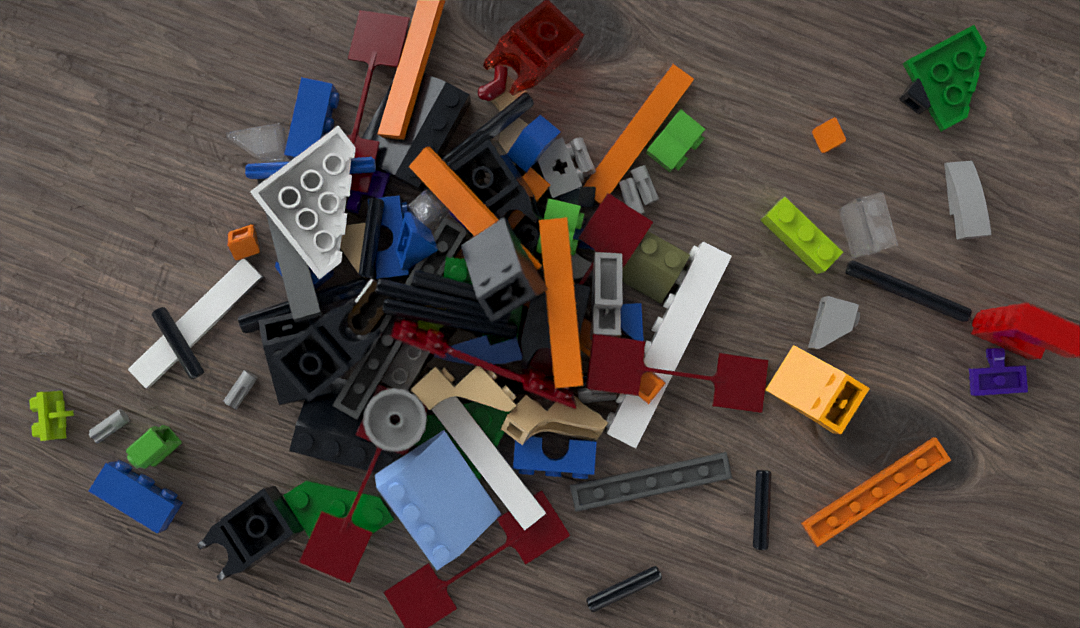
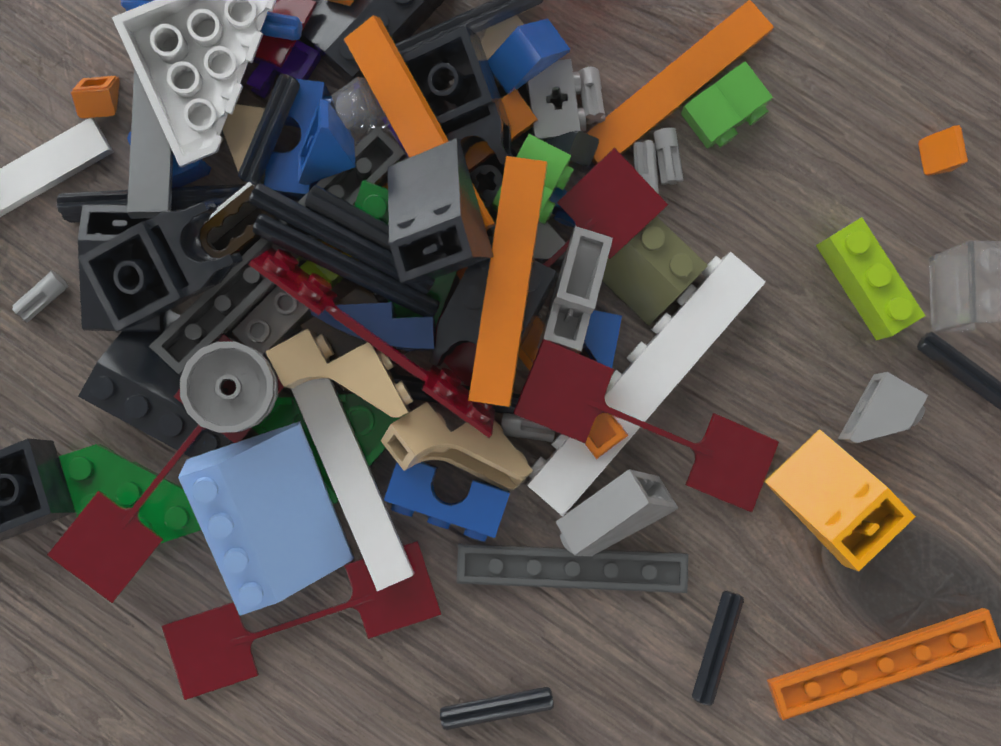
camera: 20 degrees right, 0 degrees up
(670, 437) = (615, 513): none -> light grey slope

